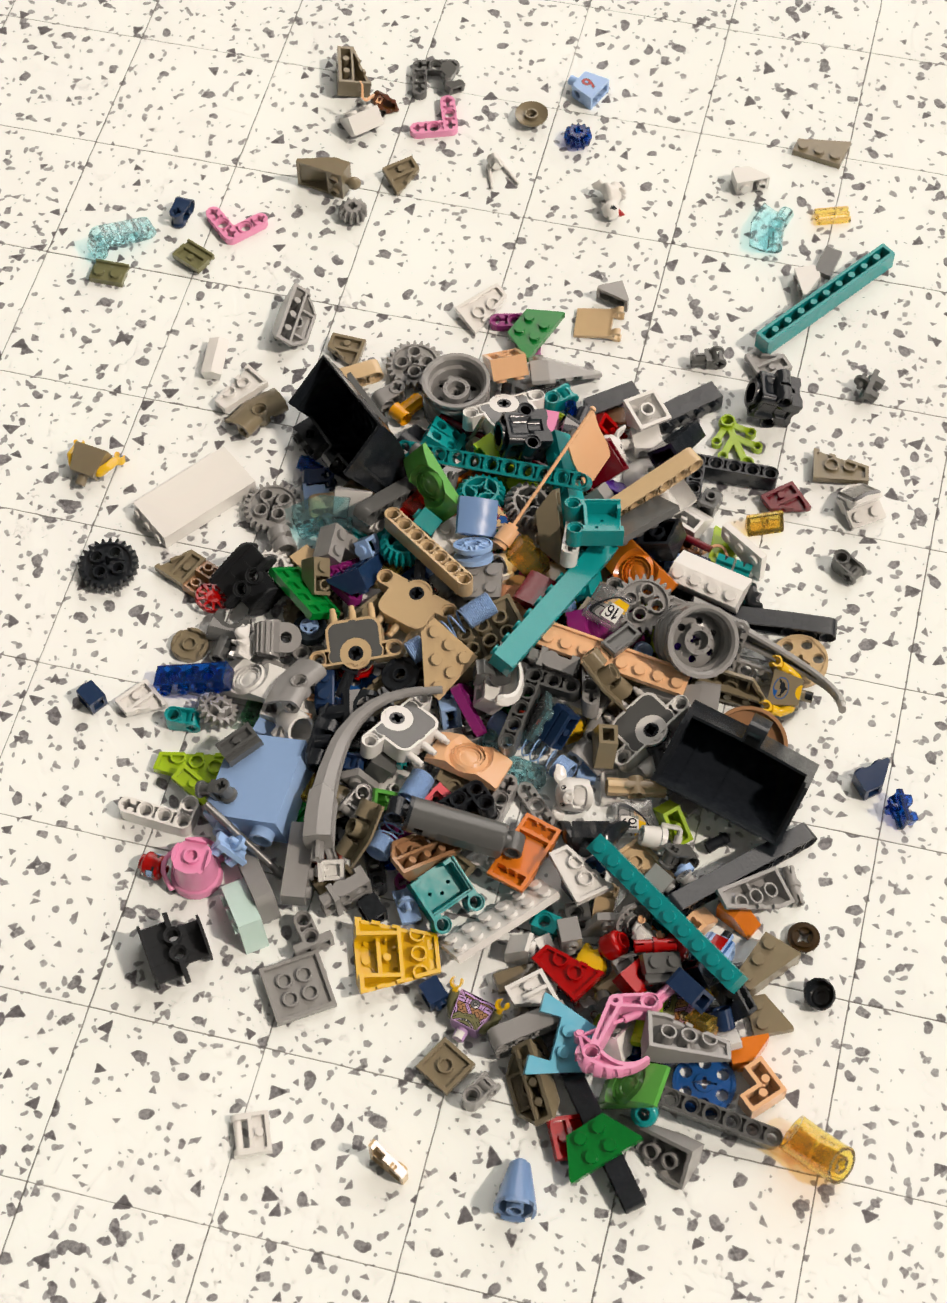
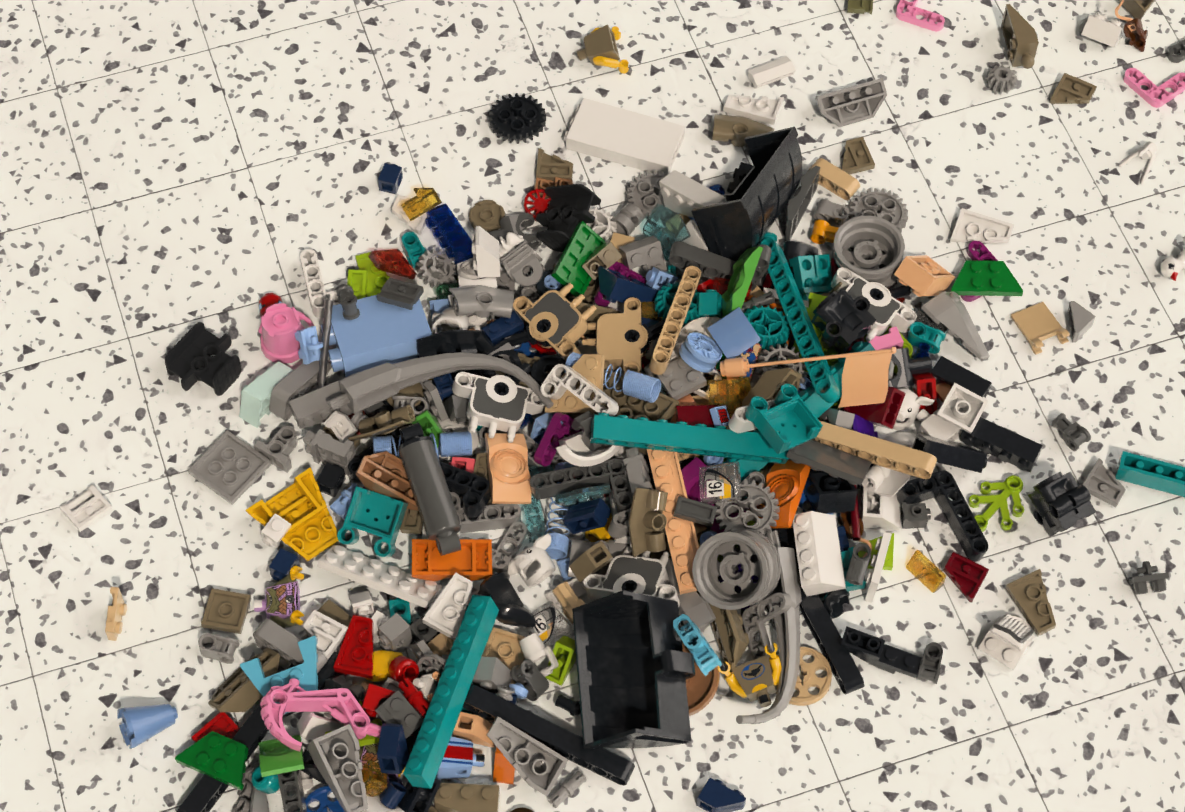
camera: 55 degrees right, 0 degrees up
(145, 679) = (421, 203): none -> clear yellow slope
(185, 742) = (392, 262): none -> clear red wing
(249, 658) = (486, 254): none -> white slope
(313, 475) = (684, 194): none -> white wedge
(397, 980) = (275, 531): none -> white bracket
(457, 655) = (583, 392): none -> white beam
(546, 571) = (720, 416): none -> tile
(741, 559) = (858, 565): none -> dark grey piece
(753, 706) = (697, 645): none -> medium azure piece
(819, 594) = (875, 652): none -> black slope

